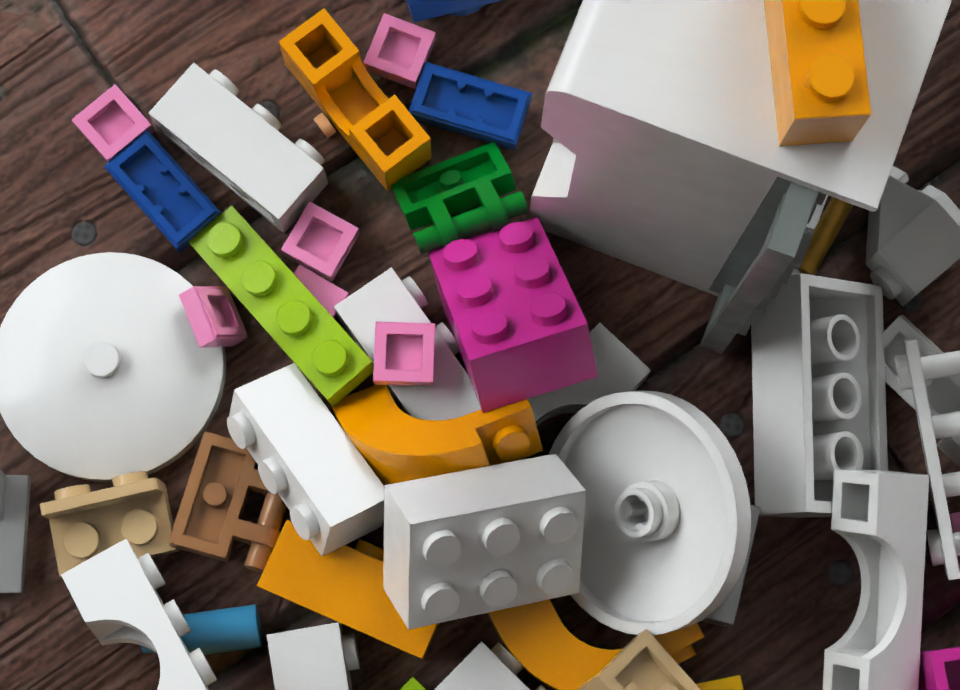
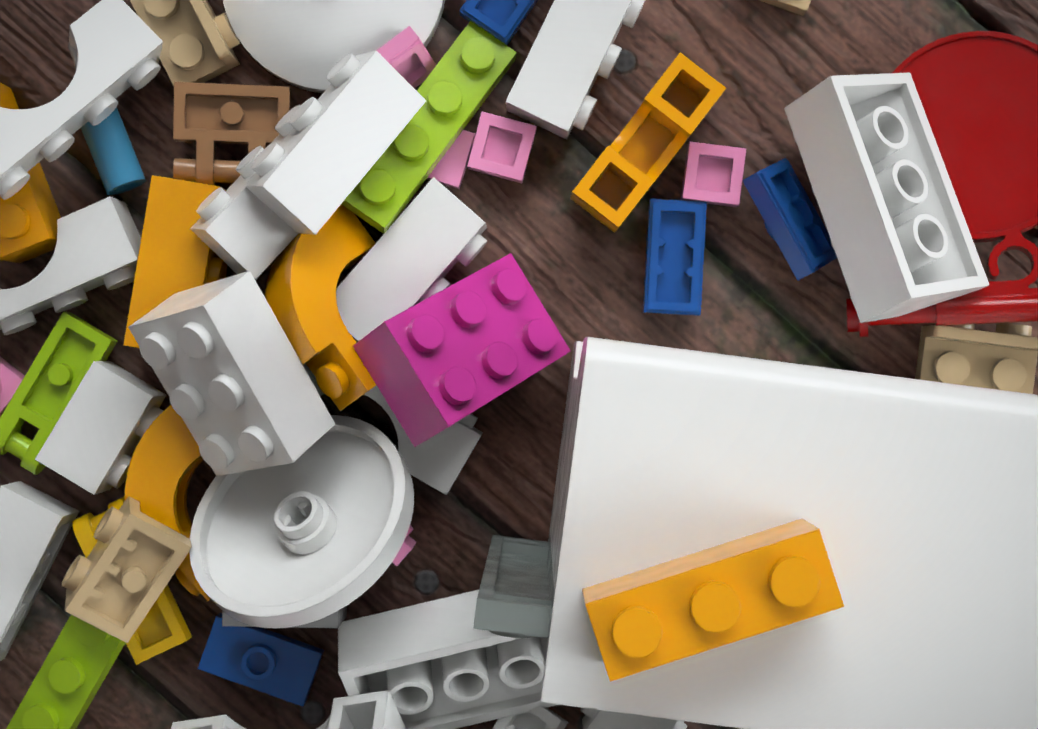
camera: 80 degrees right, 10 degrees up
(277, 383) = (334, 141): none -> white brick
(324, 125) = (621, 121): light nougat piece -> none
(404, 353) = (397, 256): bright pink plate -> none
(454, 186) = (587, 263): green plate -> none
(775, 608) = (262, 660): none -> blue plate

